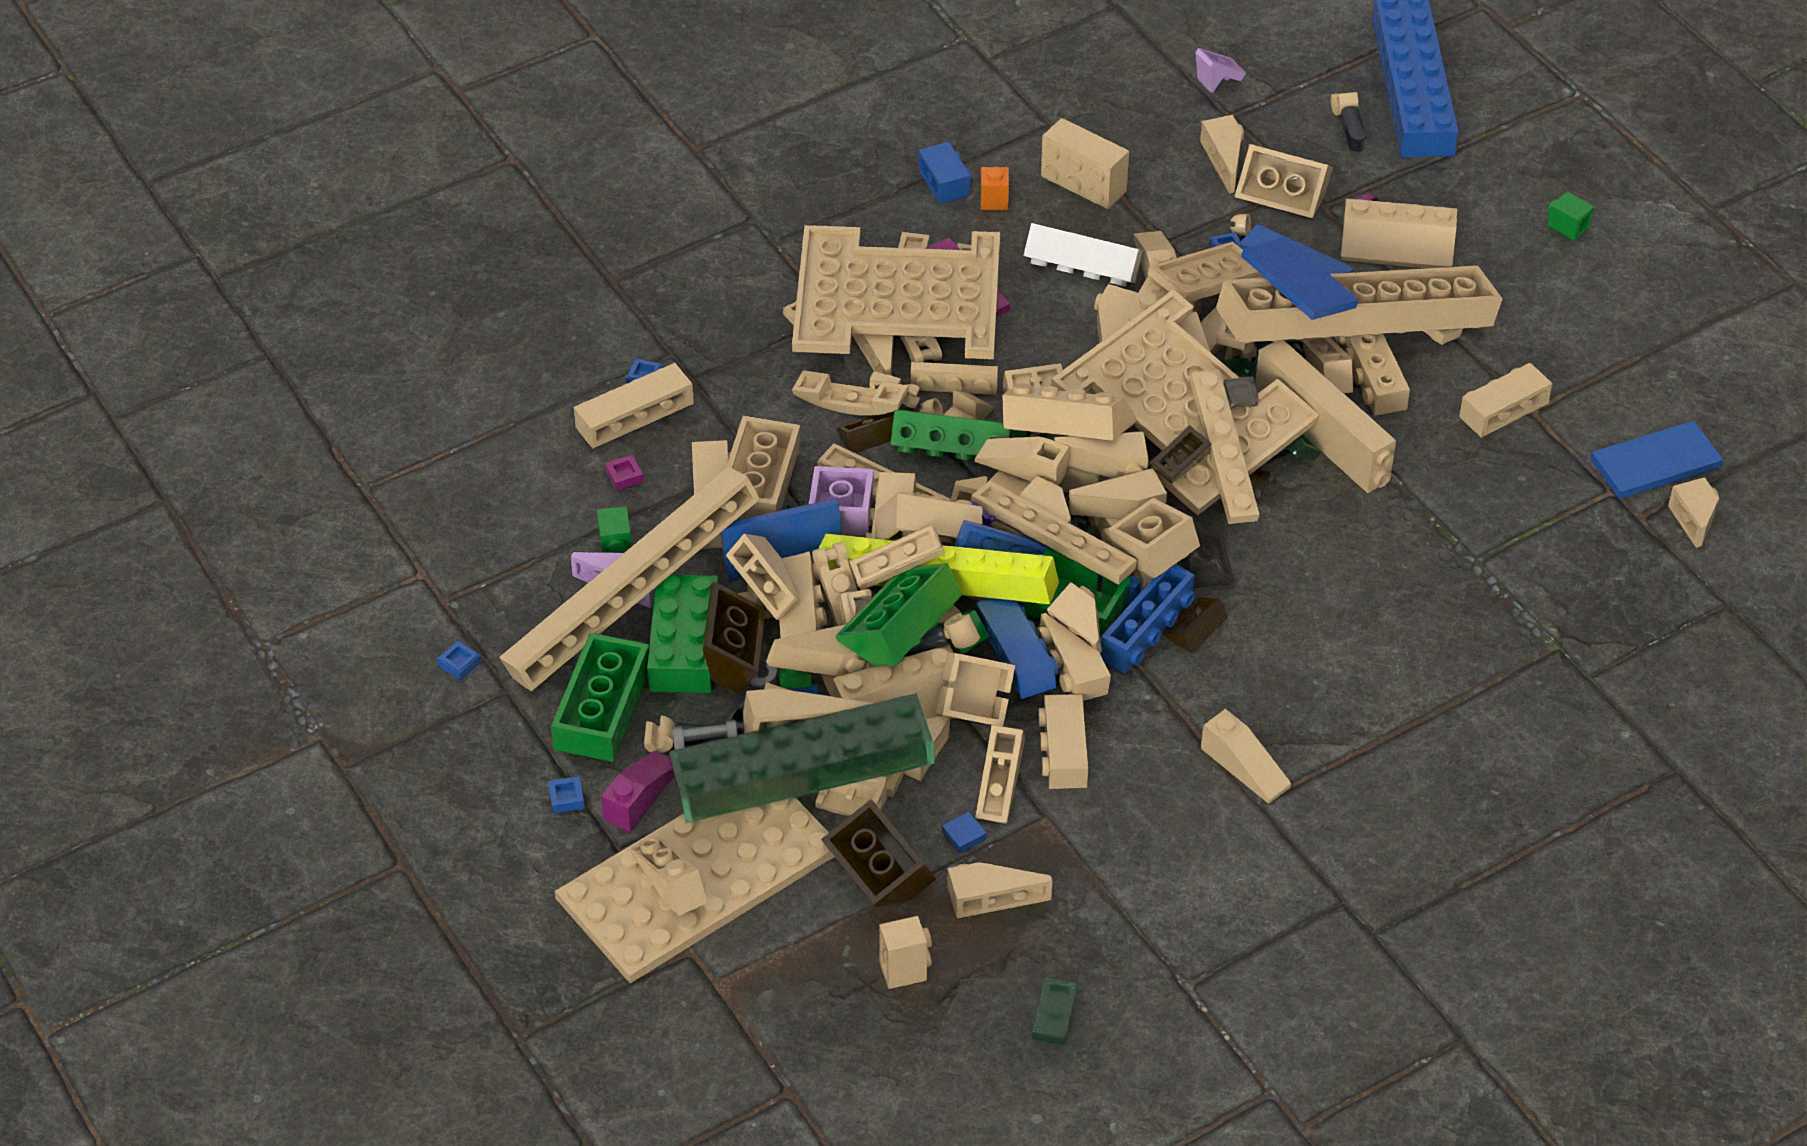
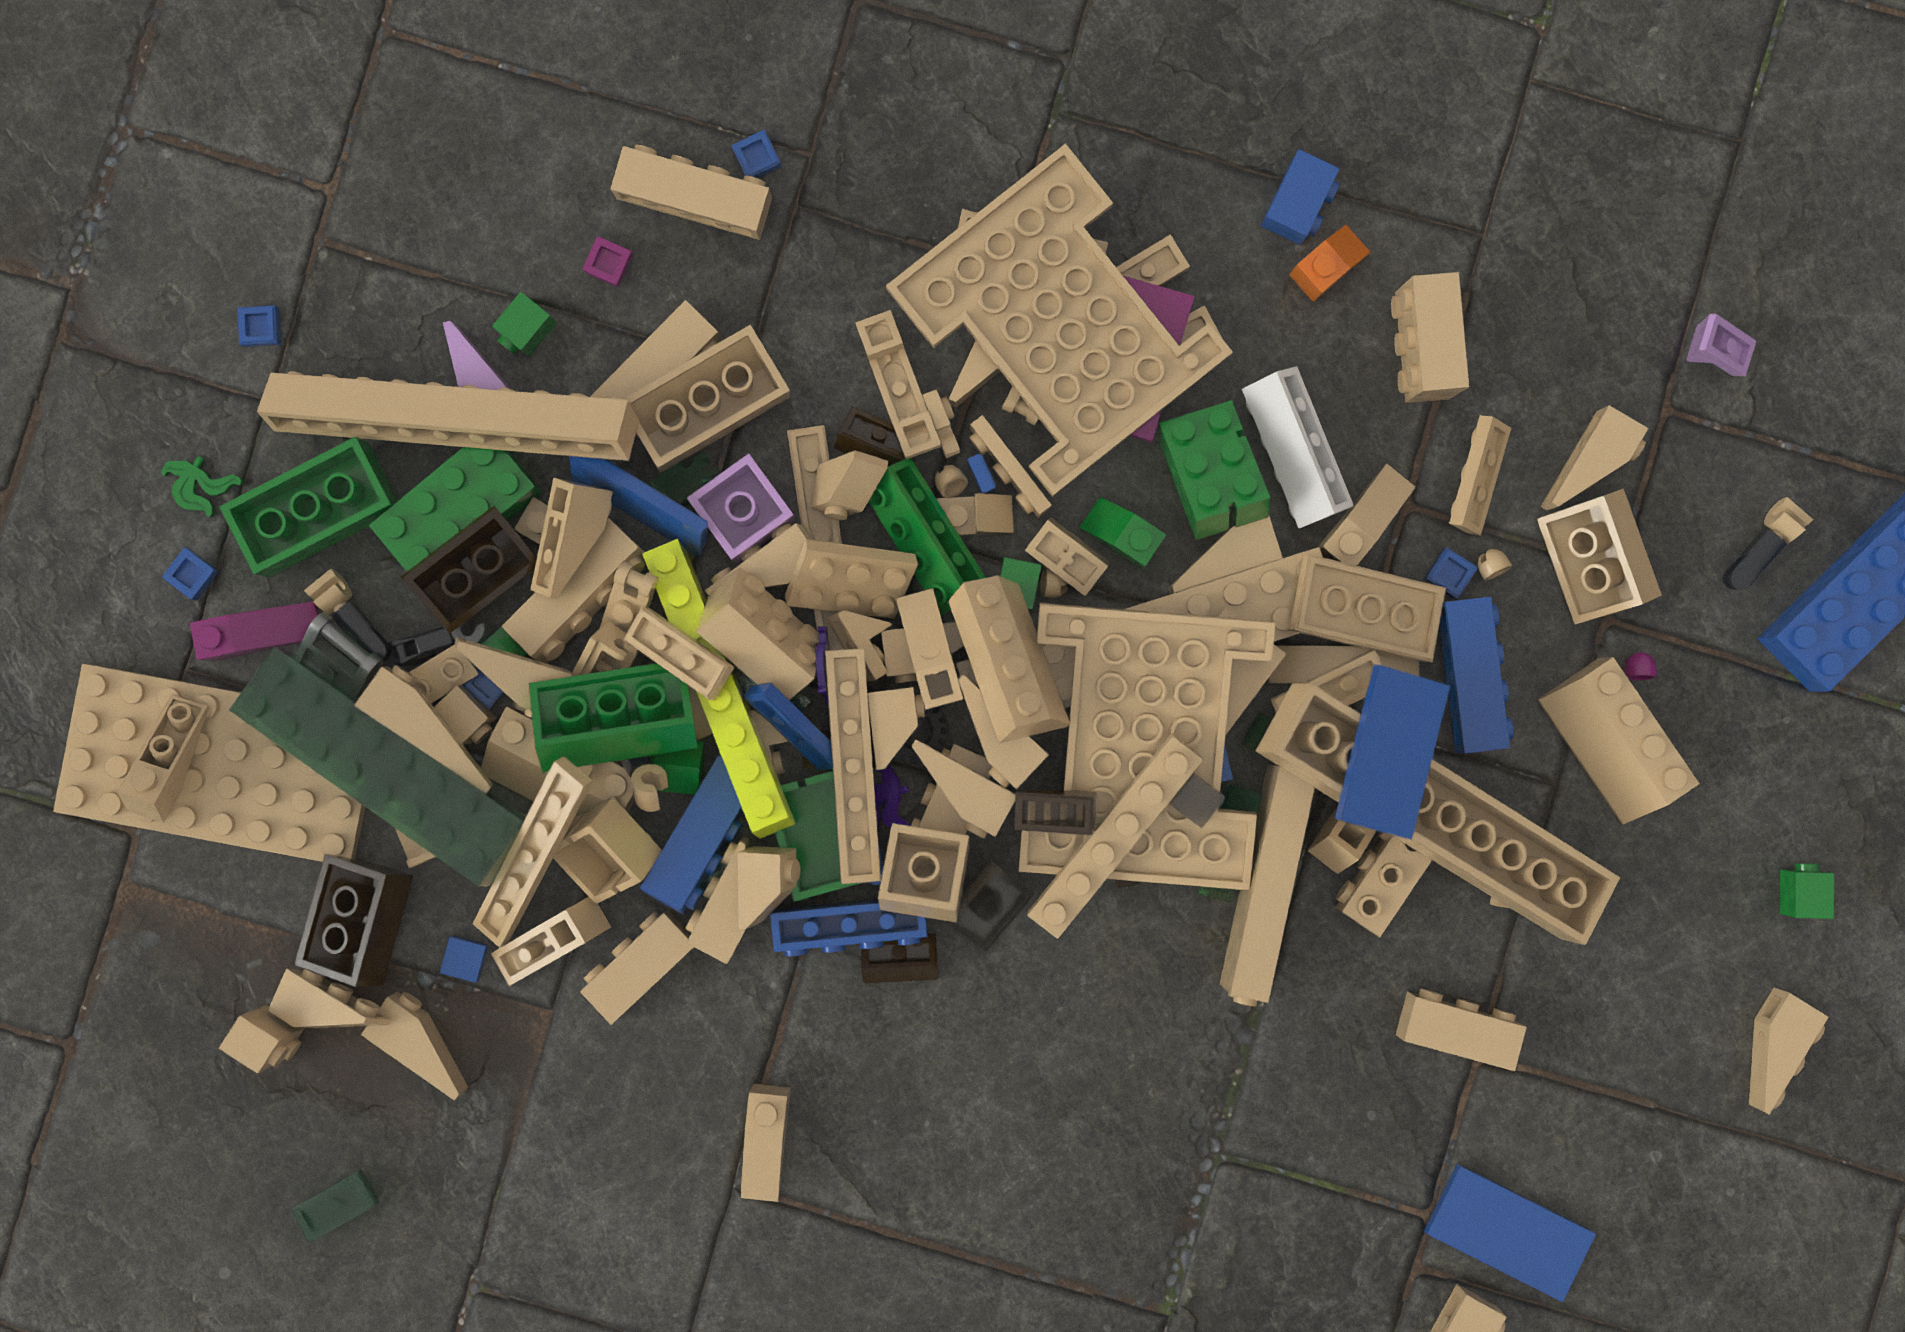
camera: 45 degrees right, 40 degrees up
(505, 760) = (185, 487): none -> green piece
(882, 438) = (847, 484): none -> tan slope
(924, 895) = (314, 1002): none -> tan slope
(938, 465) = (850, 579): none -> tan plate
(939, 714) = (532, 851): none -> tan plate
(943, 391) = (981, 474): none -> blue tile
(1050, 349) = (1122, 532): none -> green slope
(1056, 288) = (1214, 469): none -> green piece
(1183, 199) = (1479, 475): none -> tan plate
(1649, 276) = (1781, 1040): none -> tan slope

